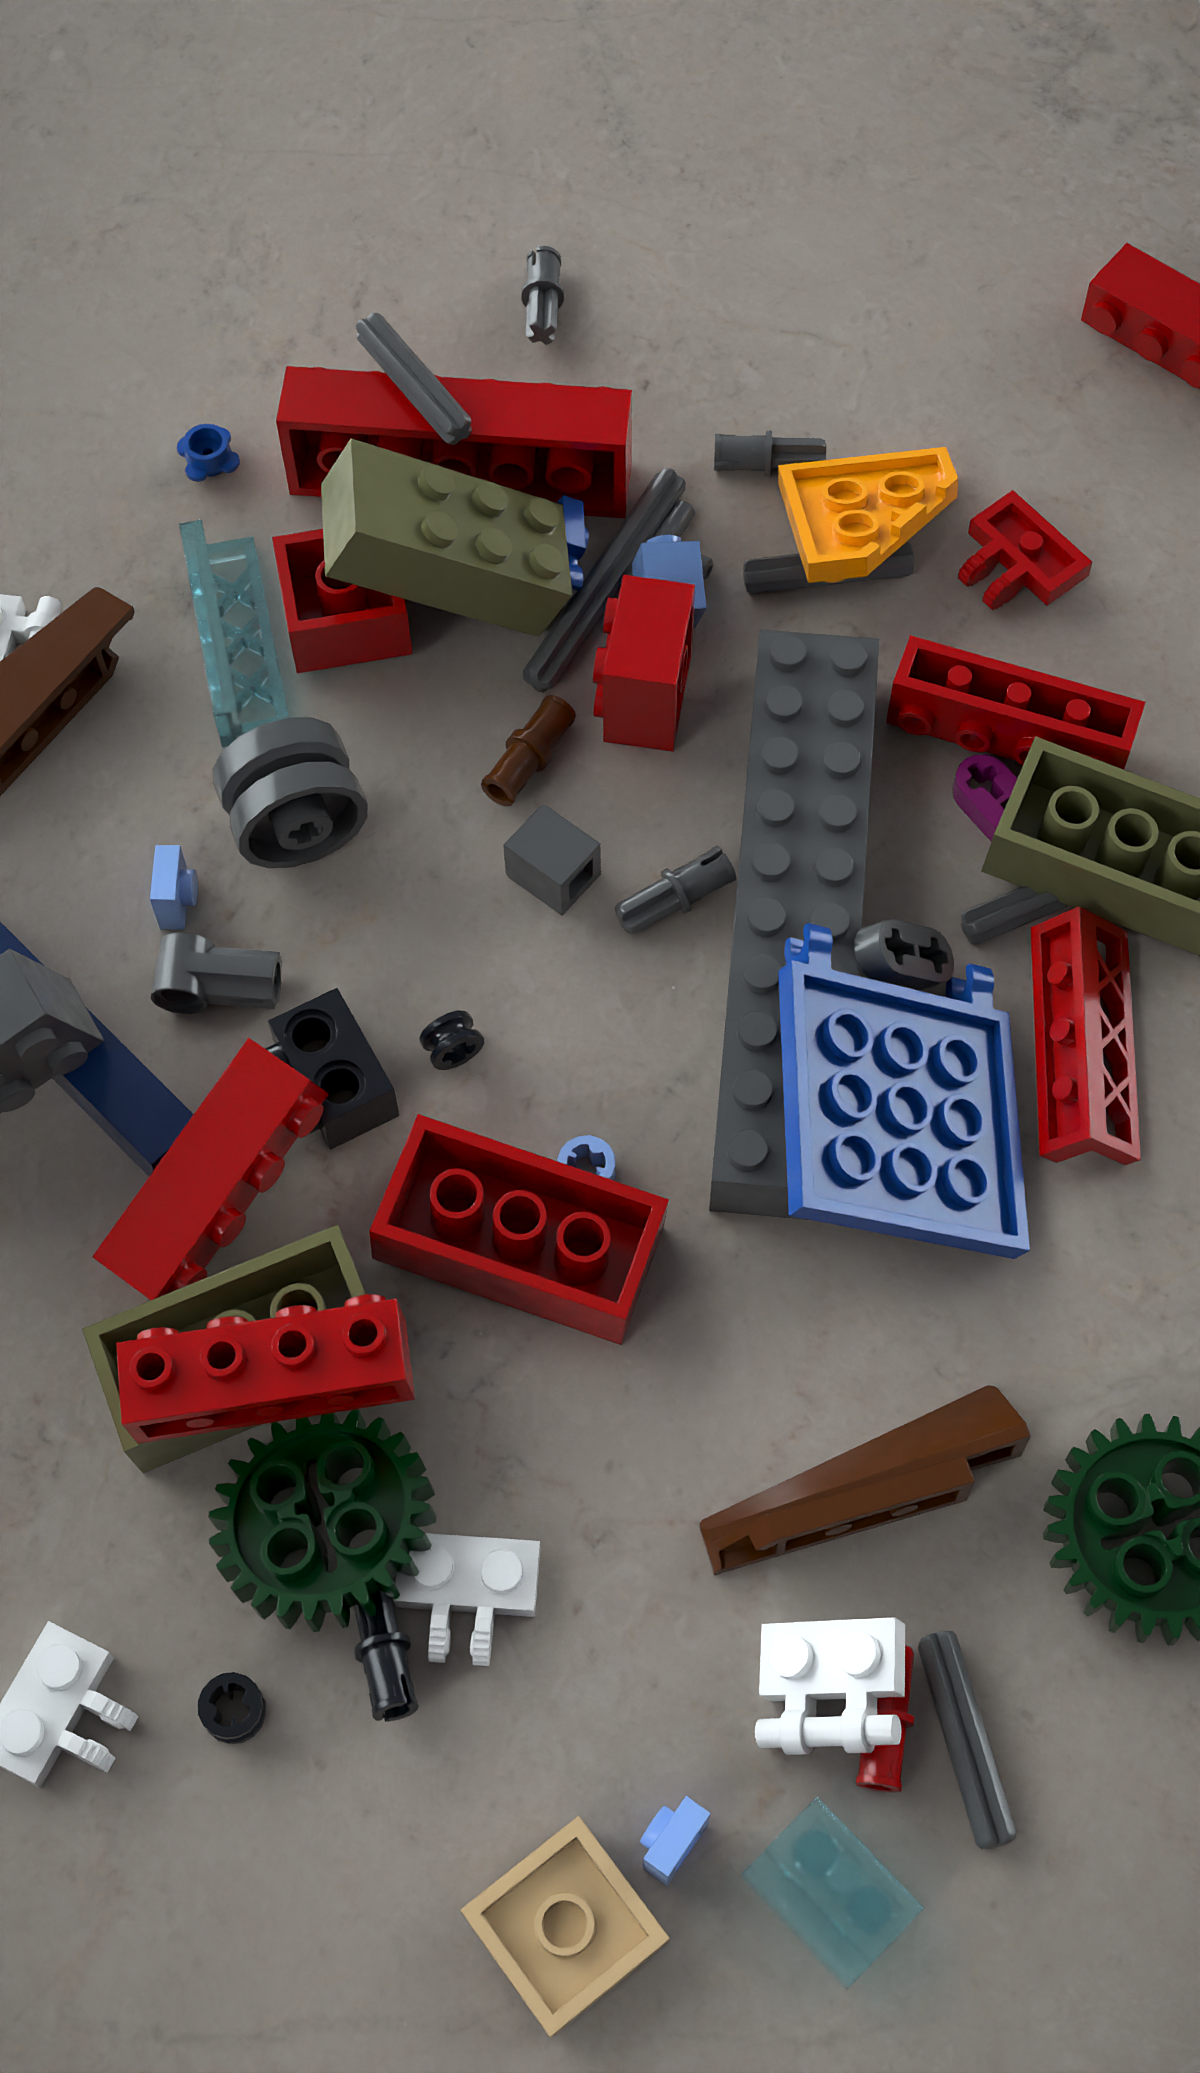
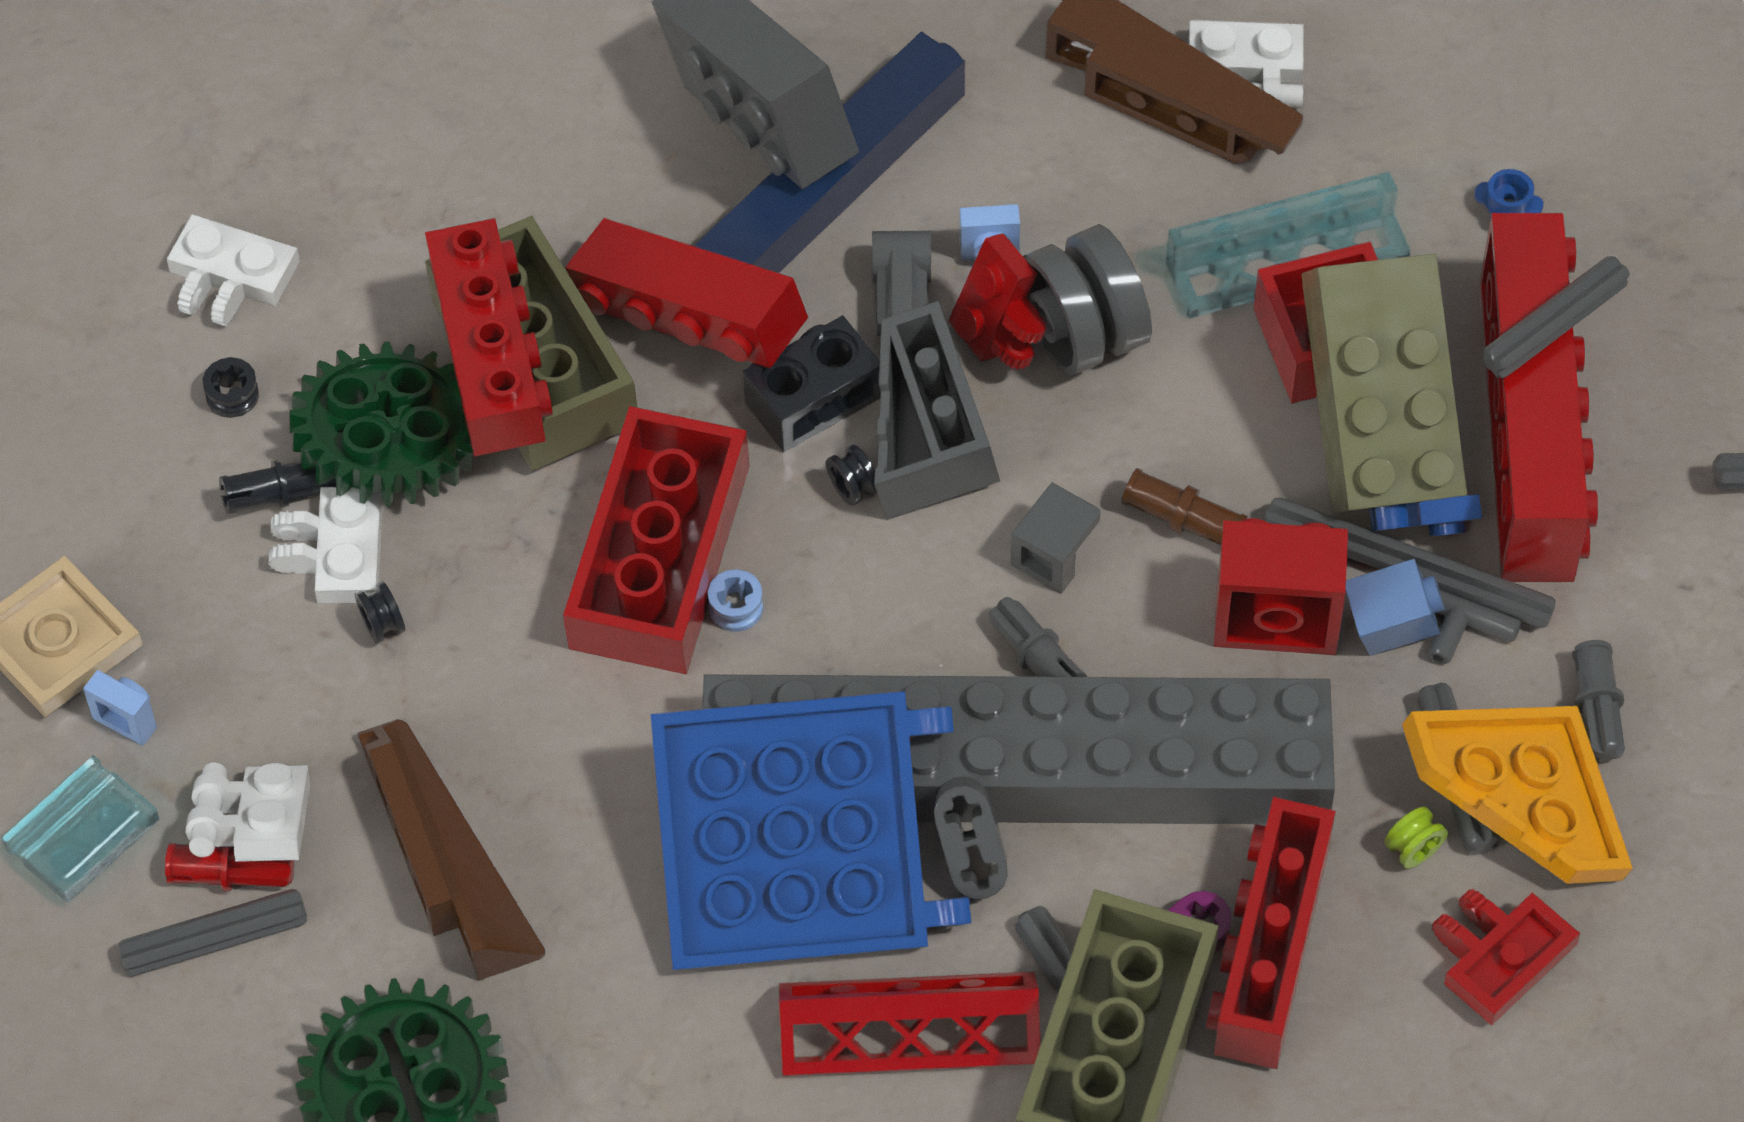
camera: 85 degrees right, 5 degrees down
(270, 873) = (994, 308): none -> red hinge
(395, 953) = (928, 419): none -> dark grey wedge
(571, 1535) = (379, 612): none -> black bush
(905, 602) = (1416, 837): none -> lime bush

